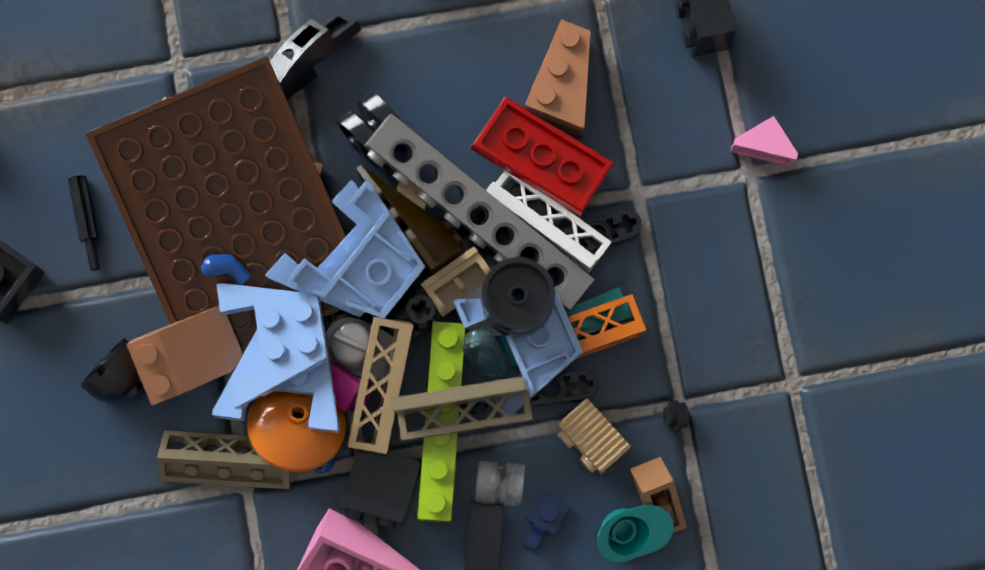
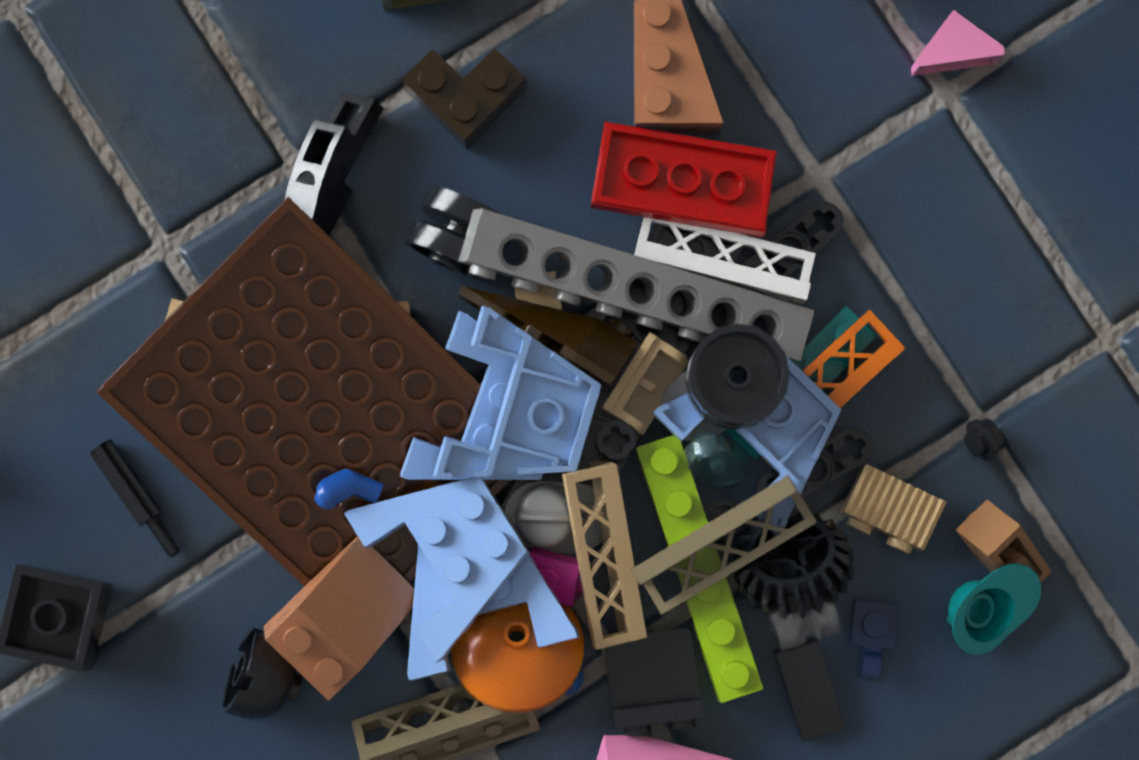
camera: 25 degrees left, 5 degrees up
(420, 49) = (467, 104): none -> dark brown brick
(508, 449) = (798, 572): none -> black gear

